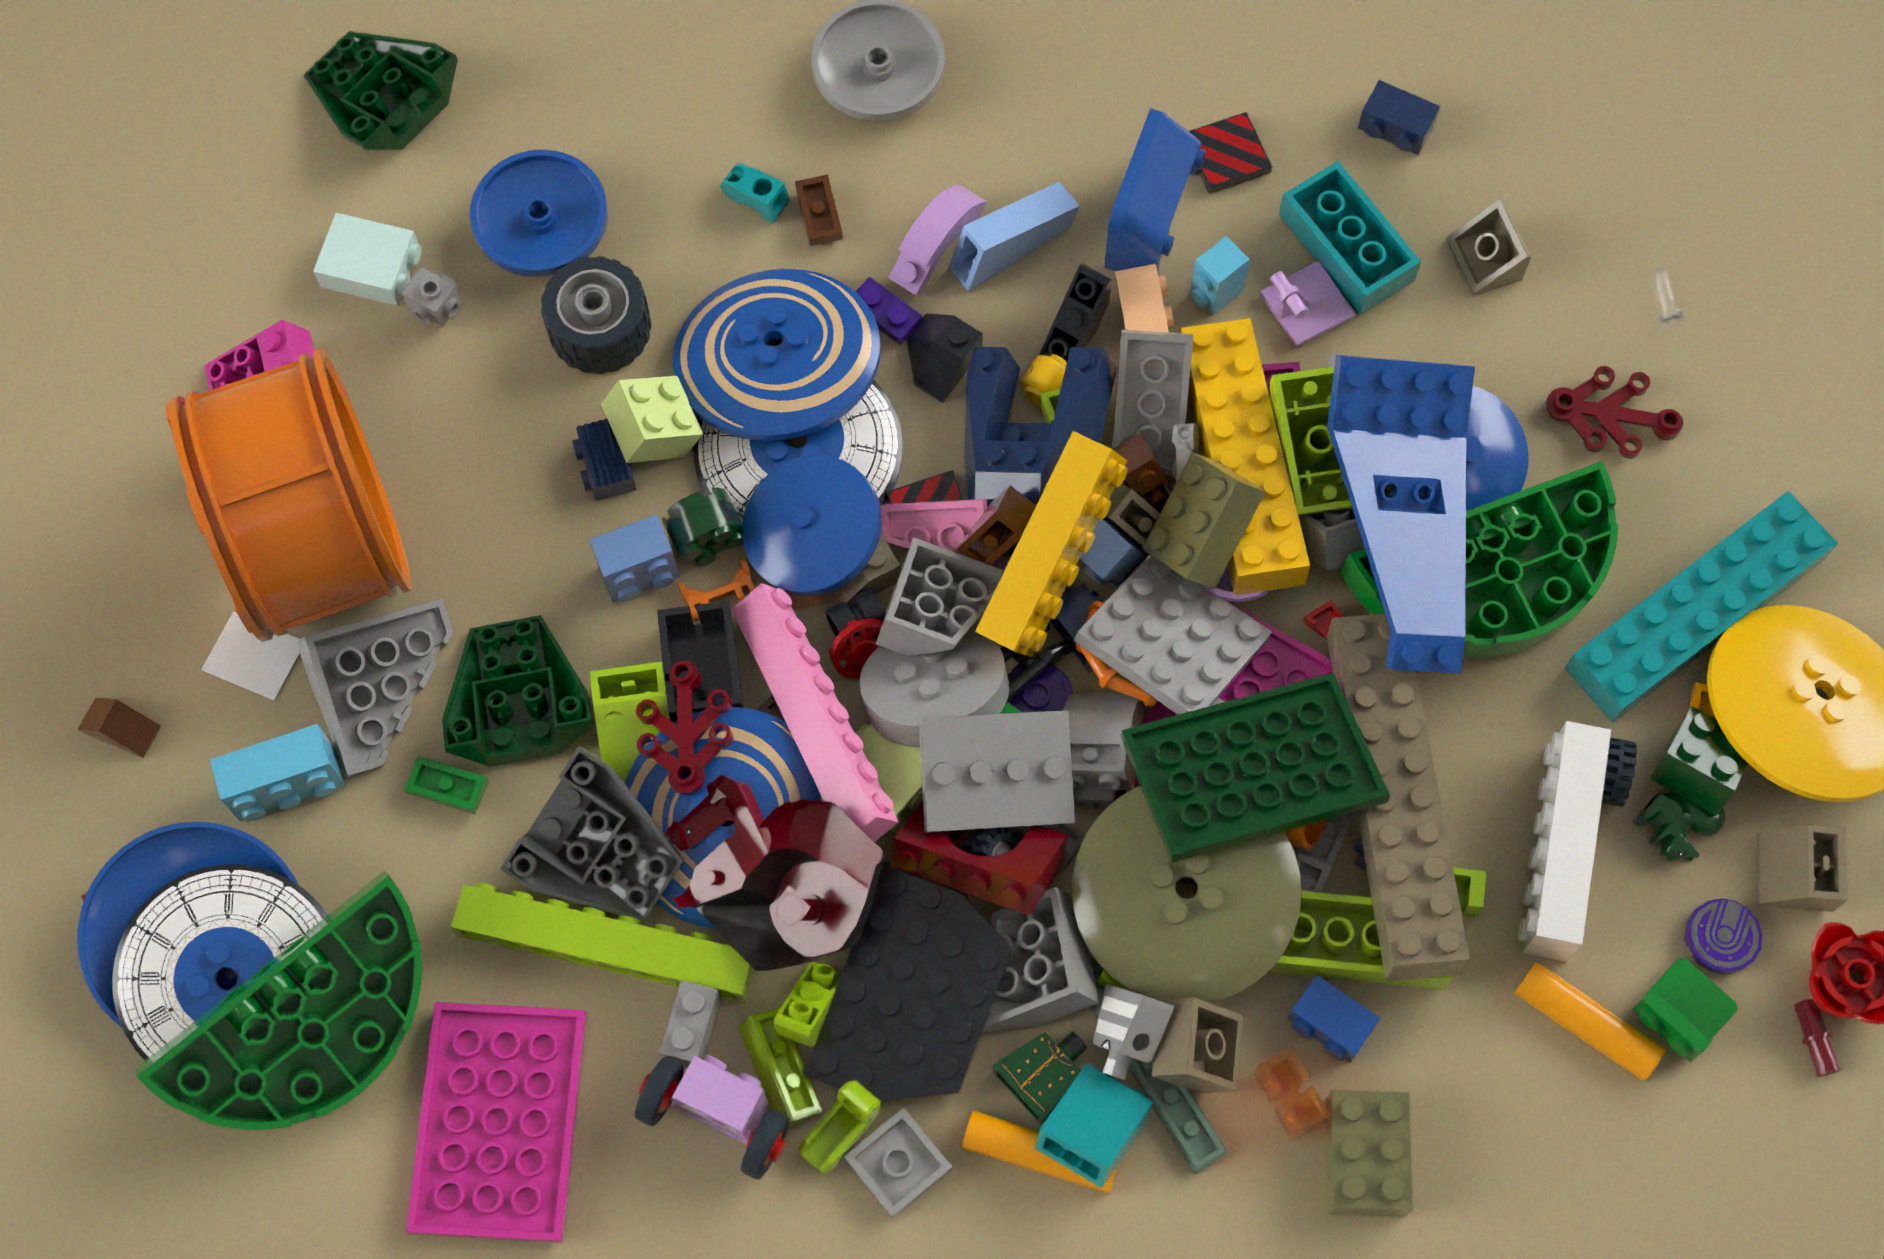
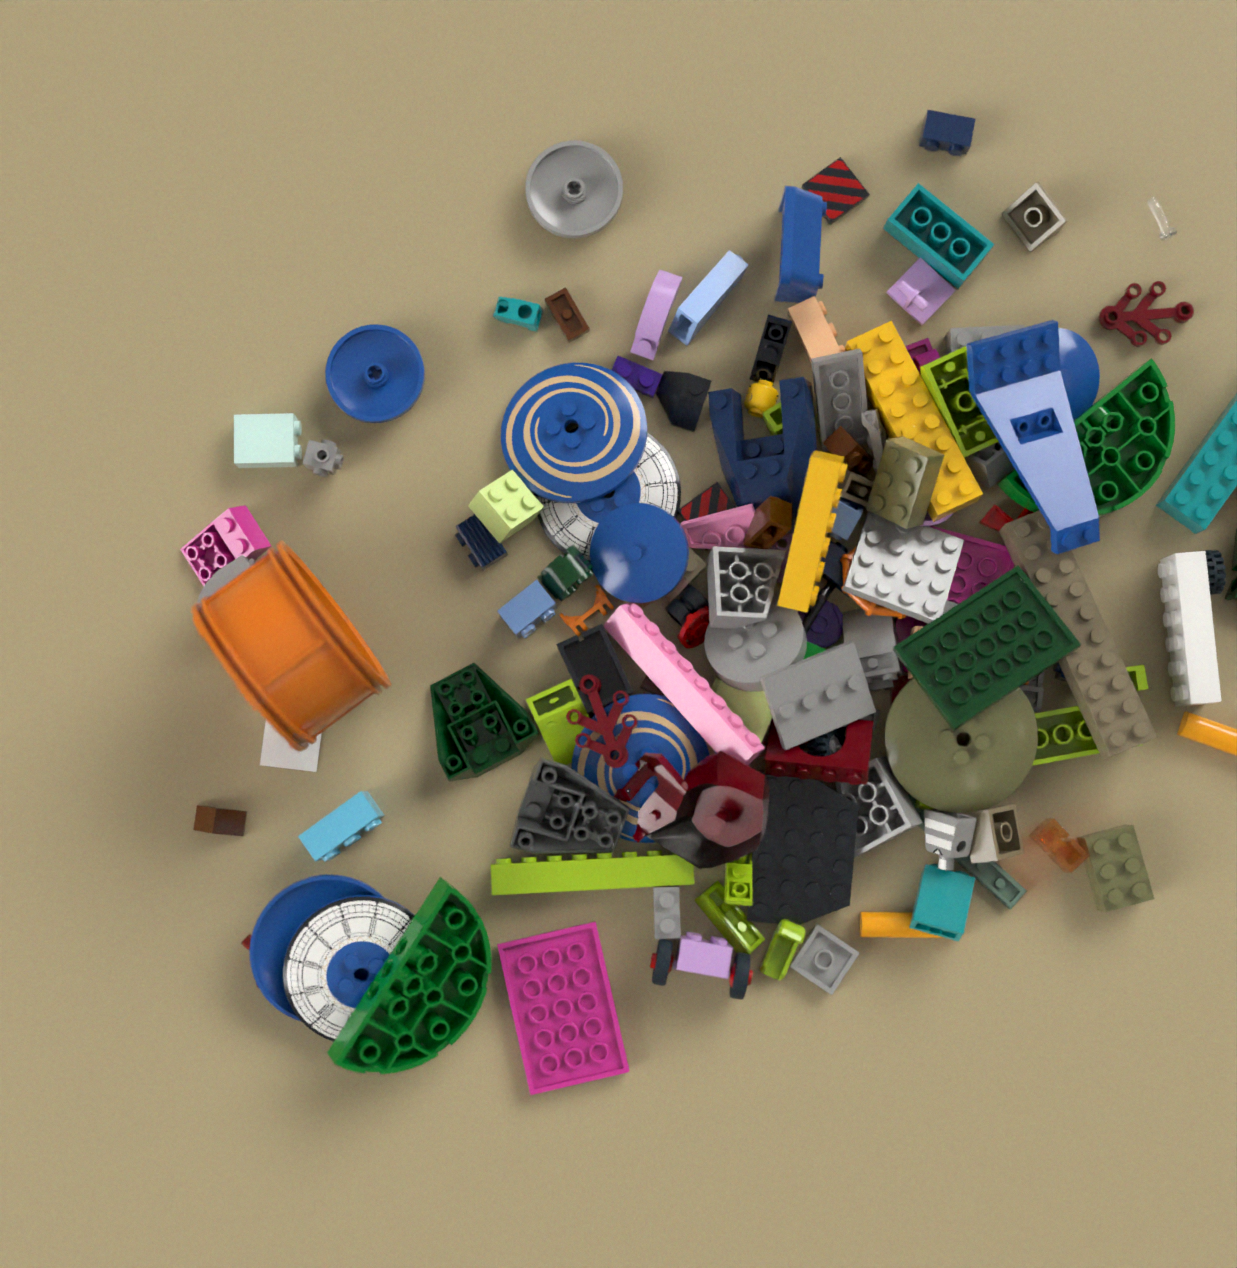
camera: 20 degrees left, 15 degrees up
(370, 675) = (376, 740): light grey slope -> none
(383, 87) = (228, 307): dark green wedge -> none
(446, 785) = (453, 798): green plate -> none
(596, 314) = (441, 439): black wheel -> none
(1041, 1072) = (898, 876): dark green torso -> none
(1219, 276) = (858, 291): medium azure brick -> none
(1332, 1019) = (1071, 787): blue brick -> none

